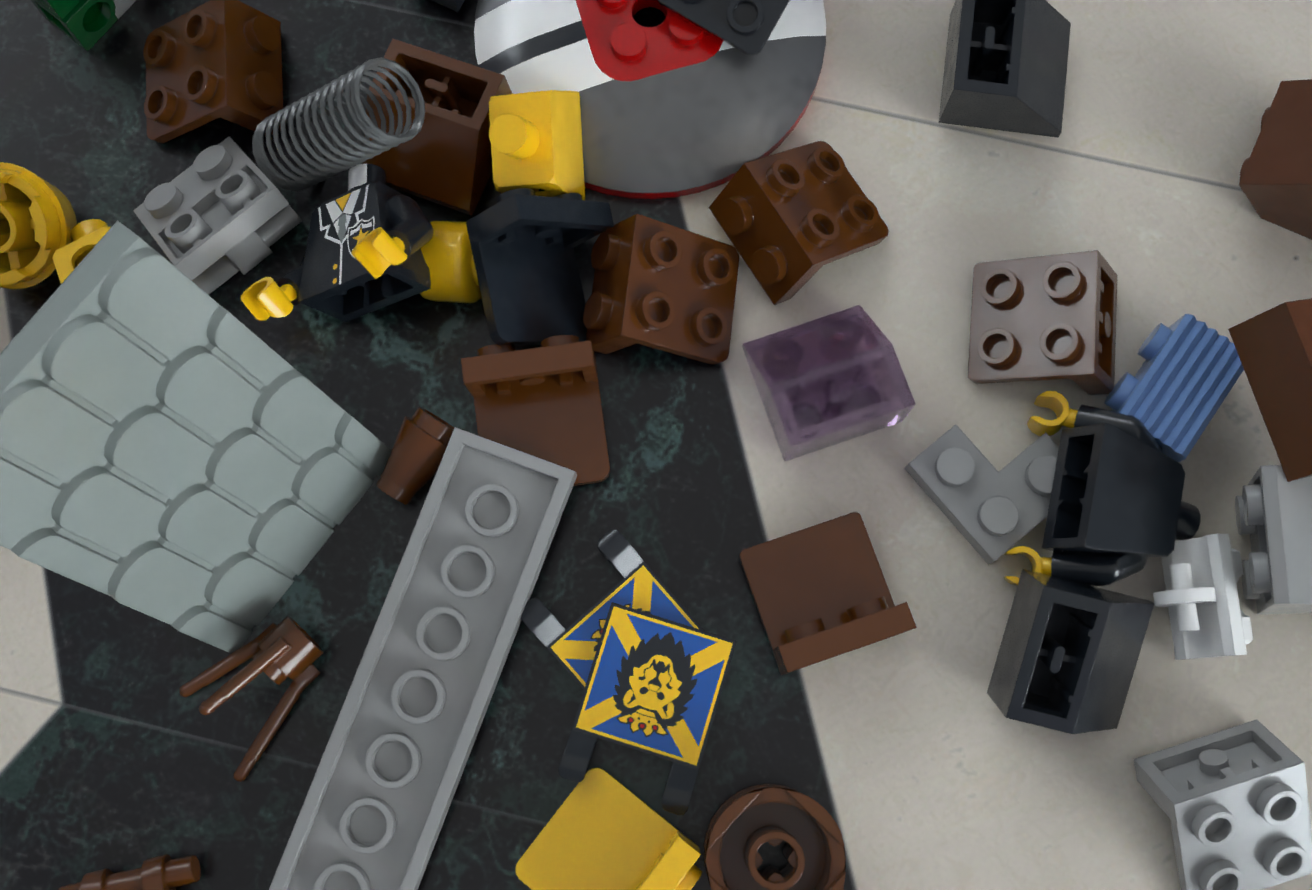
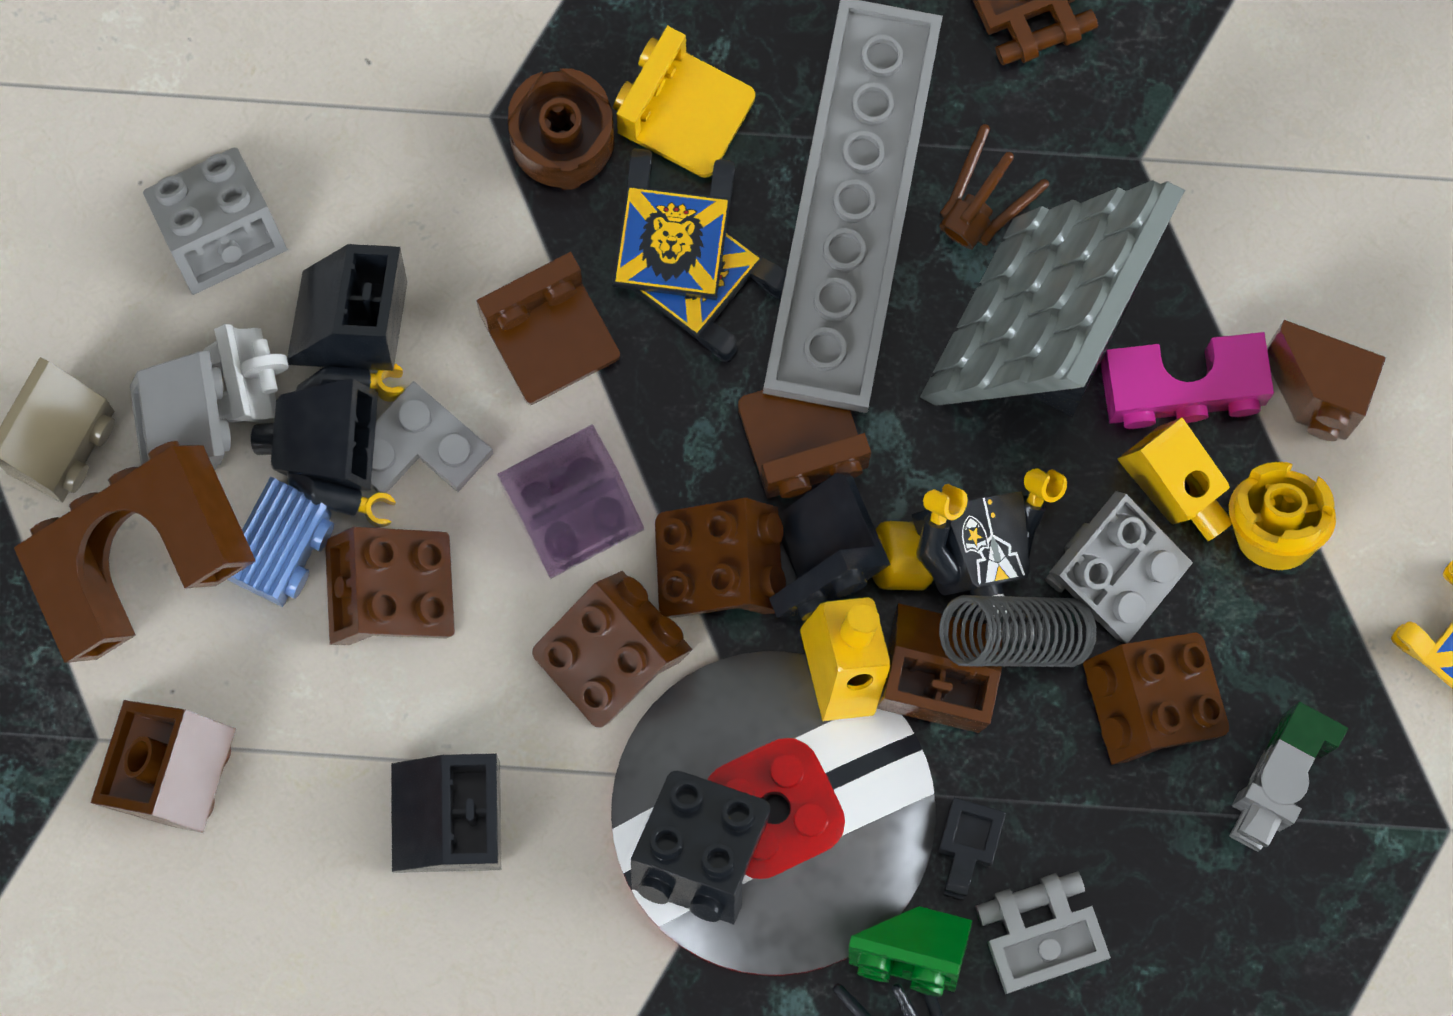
camera: 165 degrees right, 0 degrees up
(415, 455) = (897, 392): reddish brown cone -> none

